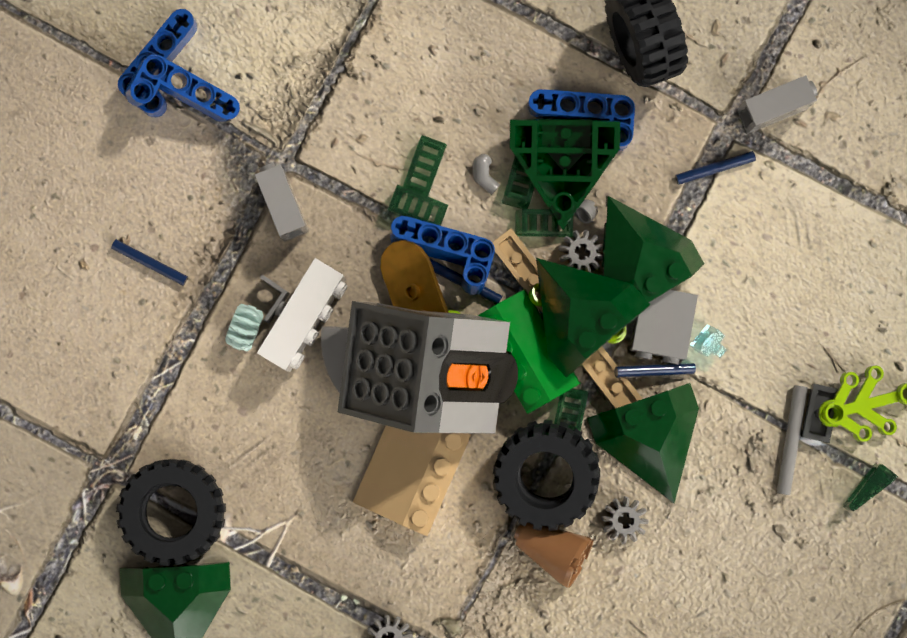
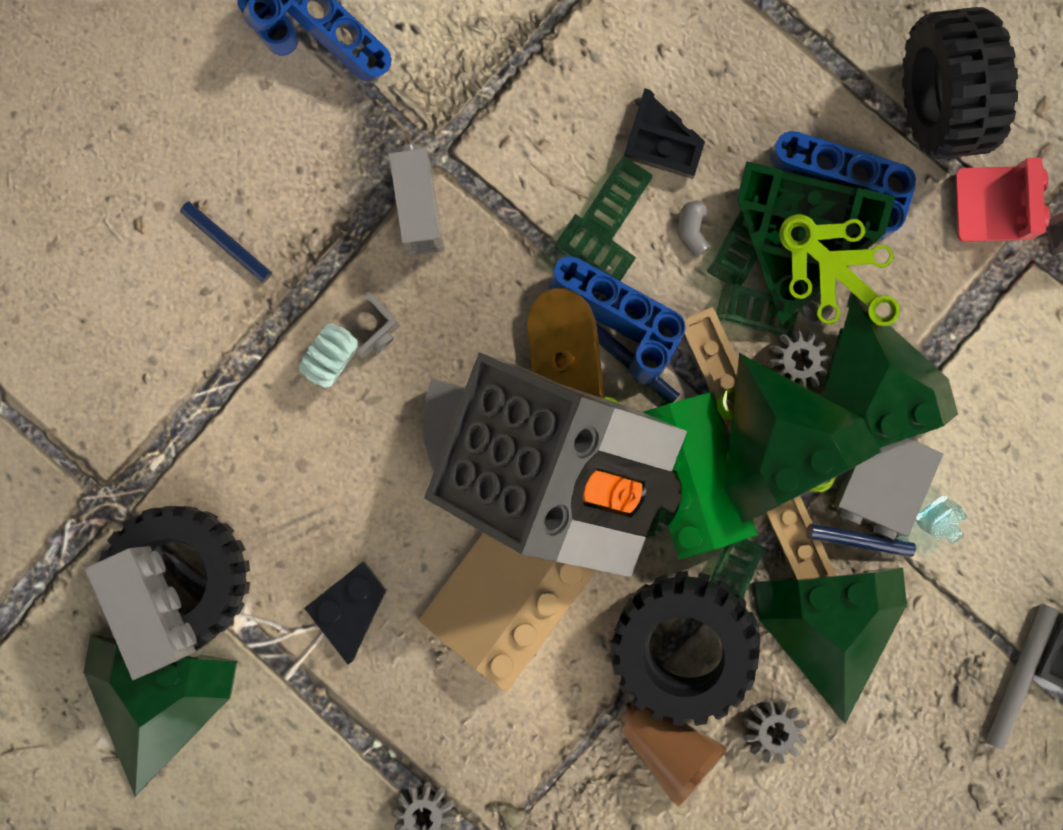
camera: 20 degrees right, 0 degrees up
(159, 536) = (141, 610): none -> light grey brick
(301, 506) = (348, 610): none -> black wing
(302, 316) = (409, 357): white brick -> none
(447, 115) = (663, 139): none -> black wing
(589, 180) = (835, 264): none -> lime plant
(699, 105) = (1002, 202): none -> coral bracket
(716, 167) = (1001, 290): dark blue bar -> none

